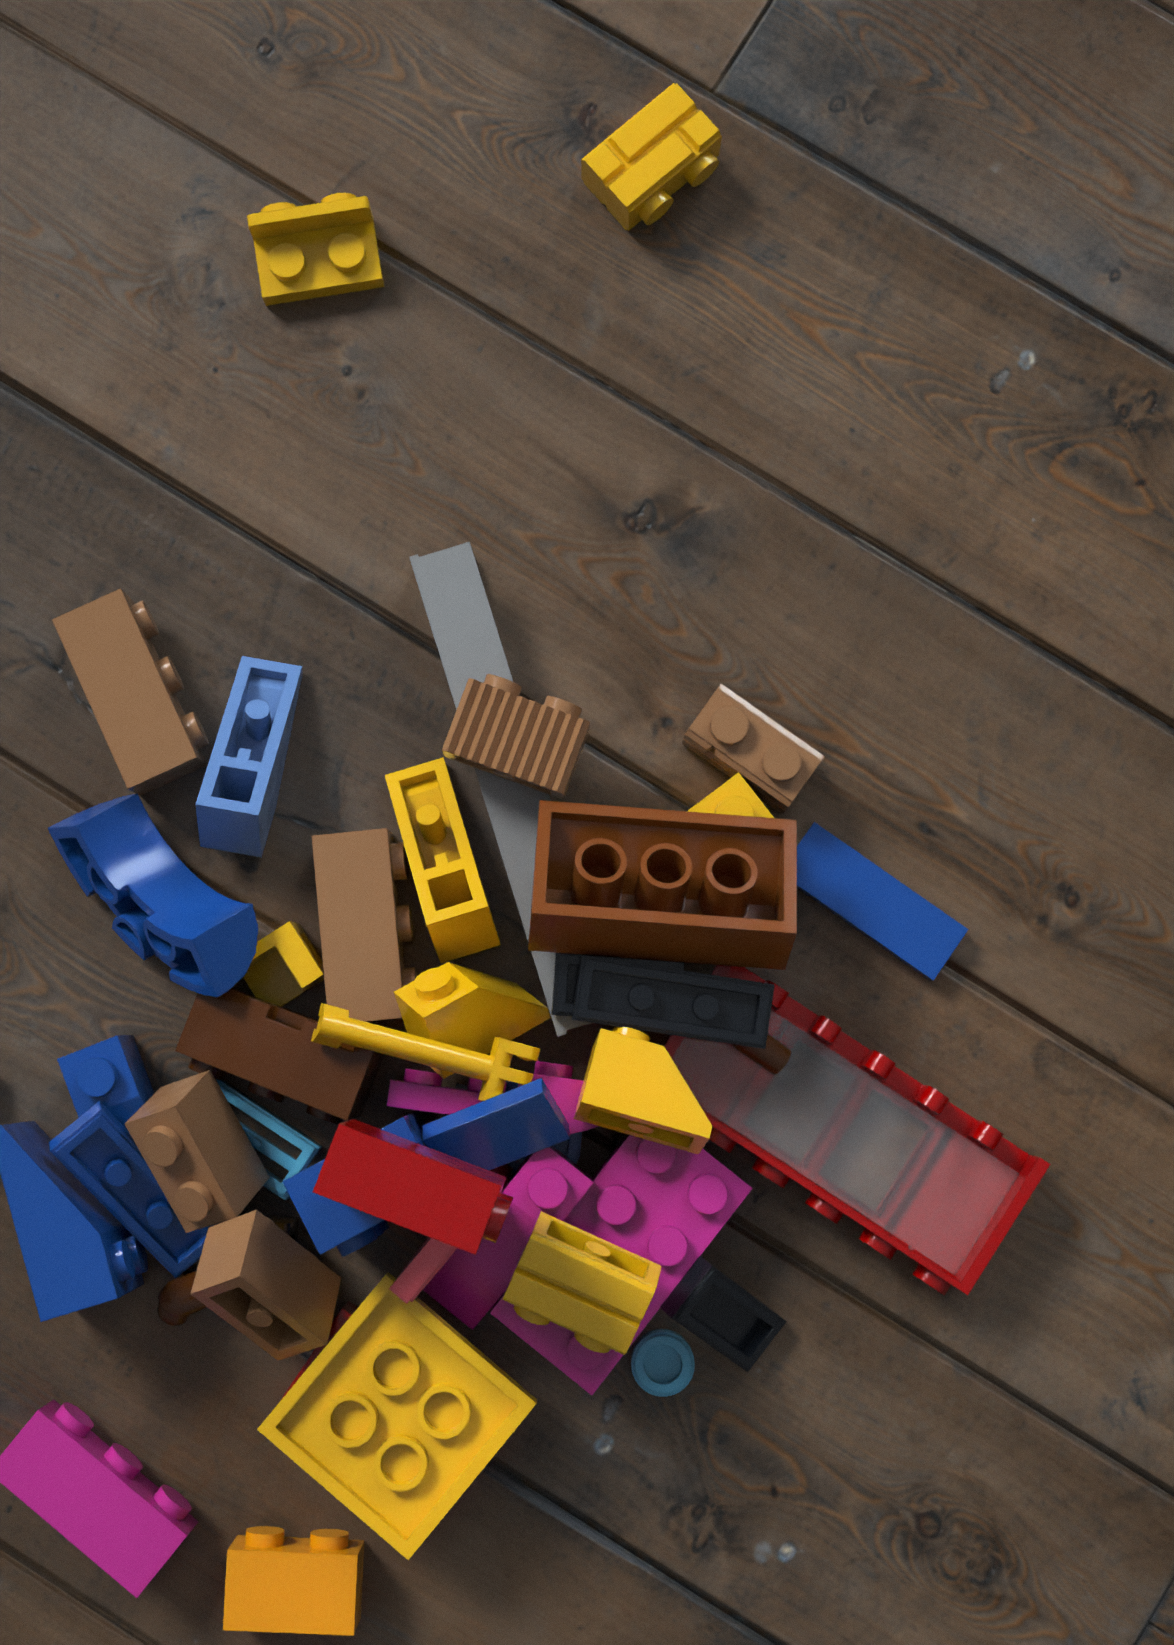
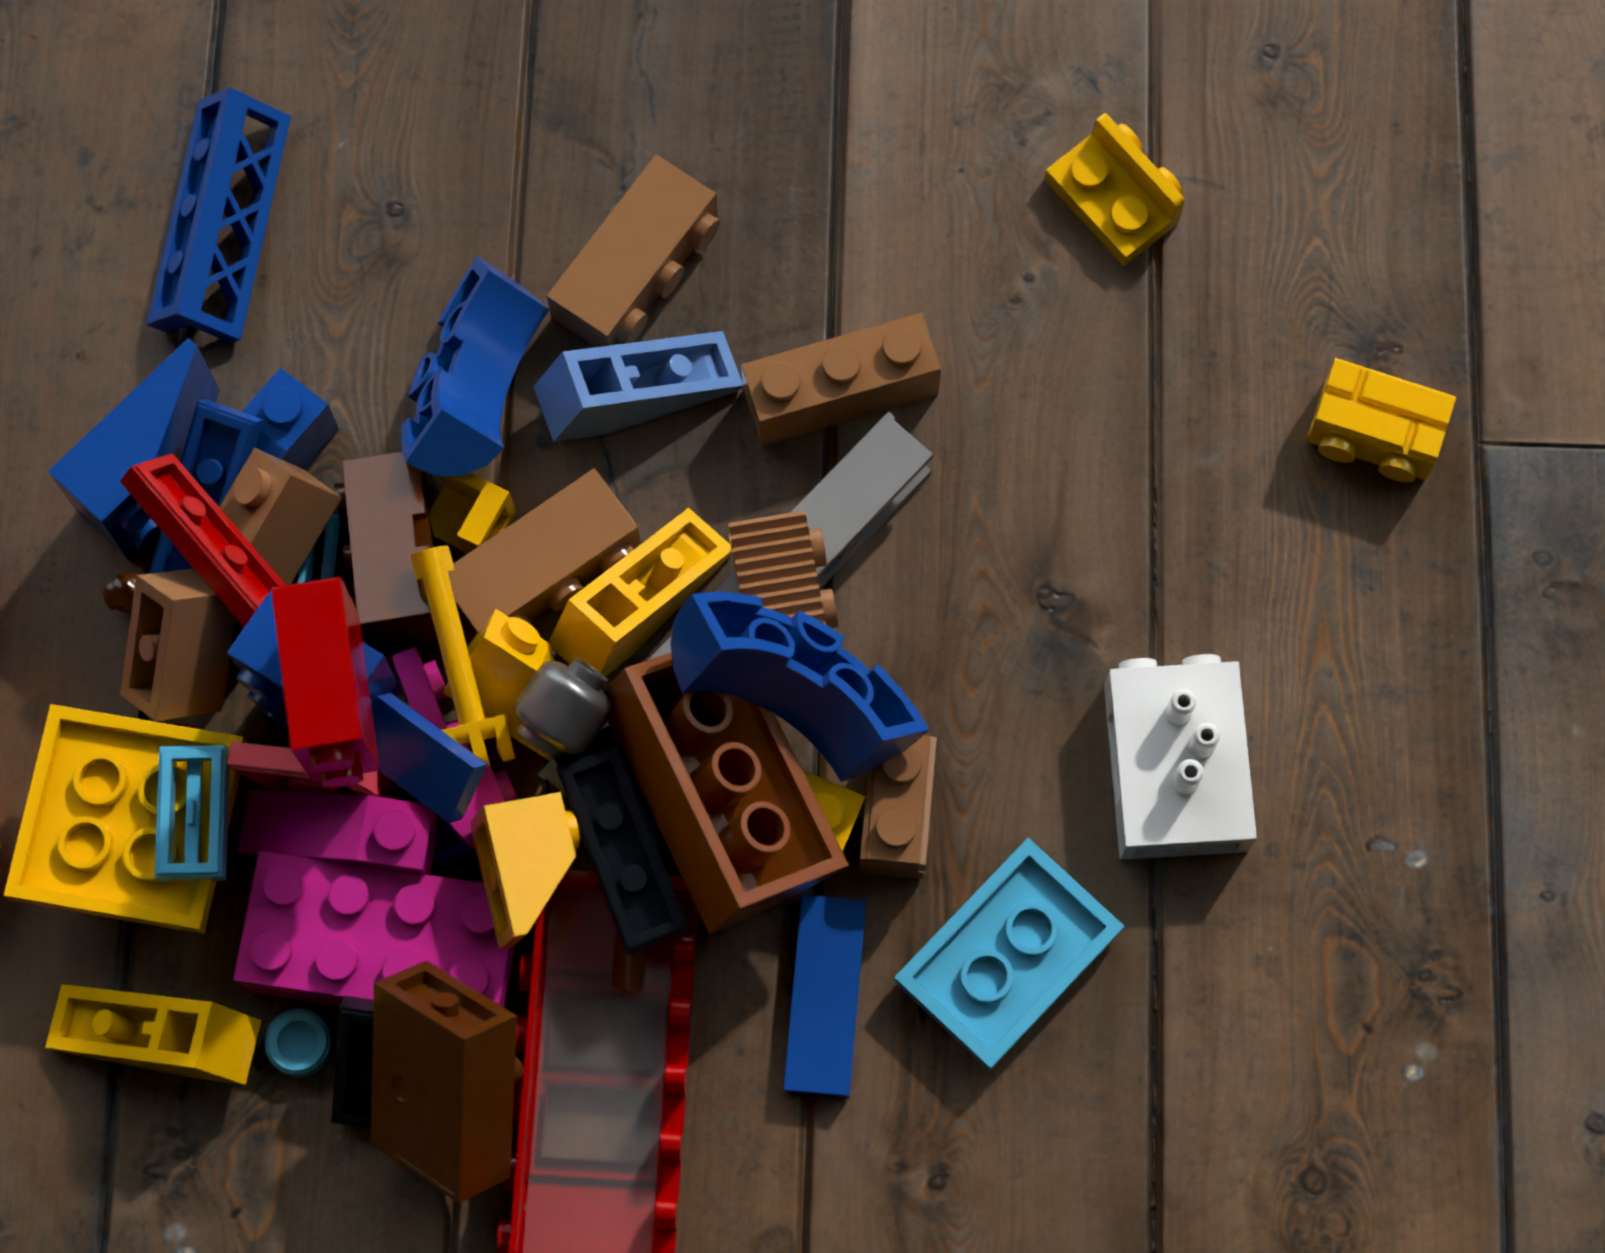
camera: 60 degrees right, 10 degrees down
(190, 1213) = (202, 534): none -> red tile
(351, 579) = (841, 379): none -> medium nougat brick
(417, 1378) = (192, 869): none -> medium azure tile
(526, 984) = (563, 708): none -> flat silver head
(582, 1285) = (324, 902): yellow brick -> none
(589, 1485) = (155, 1033): none -> yellow slope
(614, 765) = (797, 673): none -> blue brick
(787, 1263) = (443, 1080): none -> reddish brown piece
(842, 495) = (1179, 758): none -> white piece
(925, 731) = (1008, 954): none -> medium azure plate

